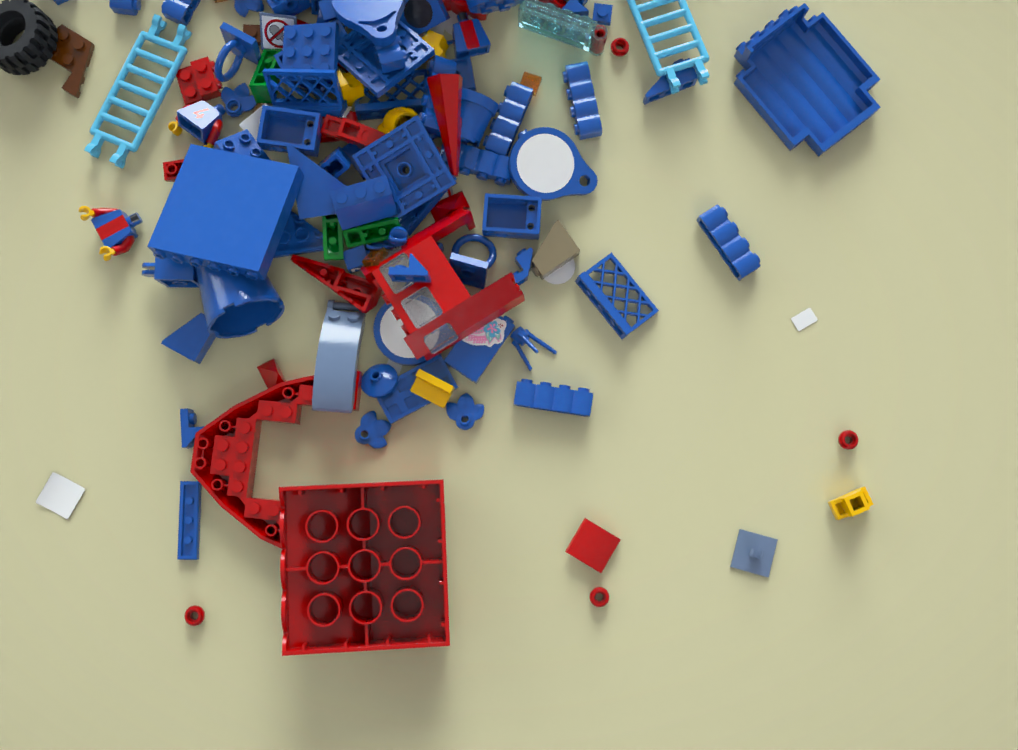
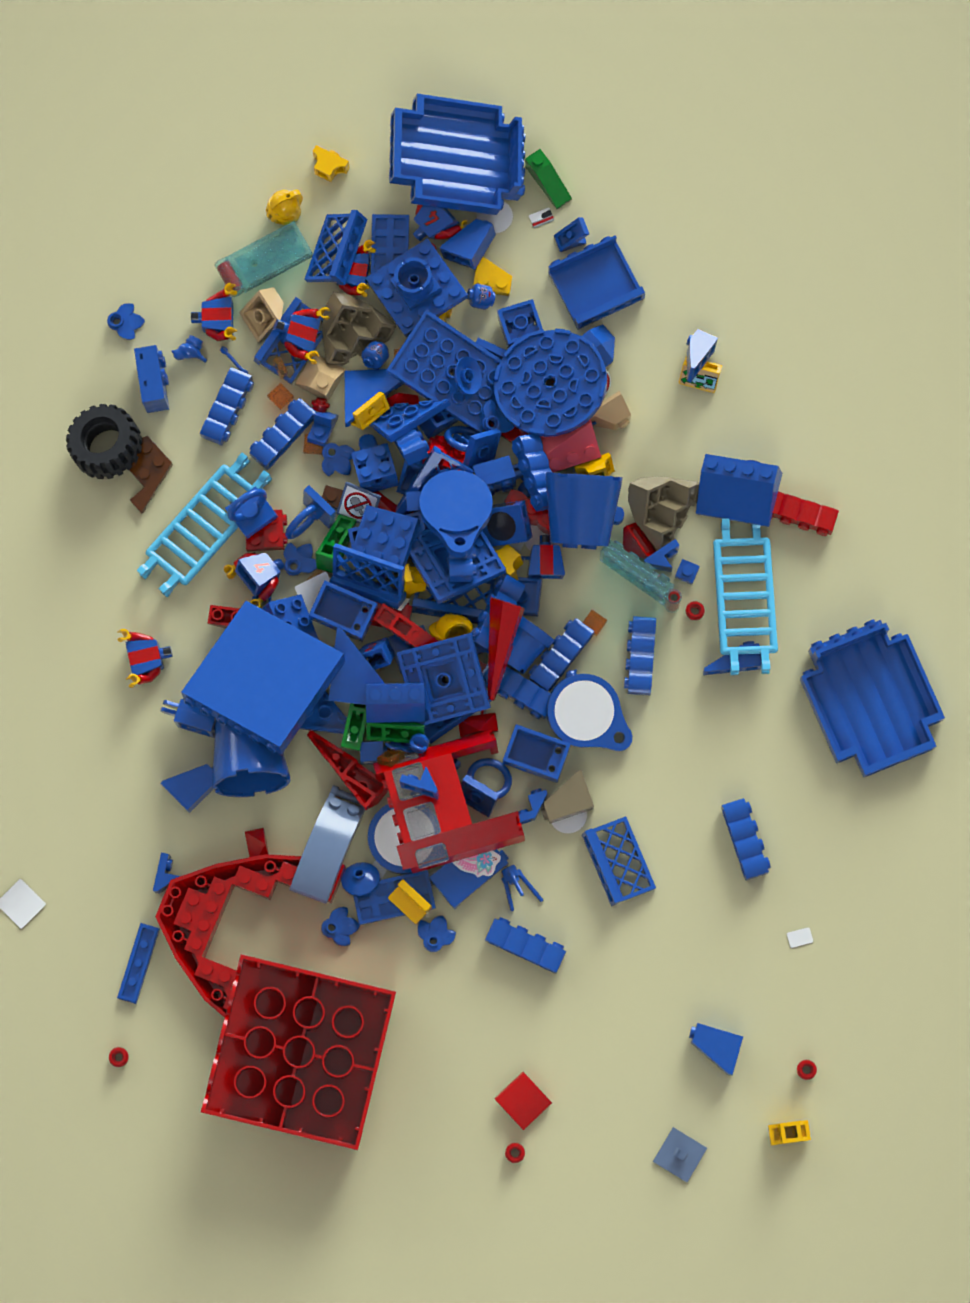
camera: 20 degrees right, 5 degrees down
(177, 63) = (251, 511): none -> blue tile
(760, 441) = (717, 1046): none -> blue slope

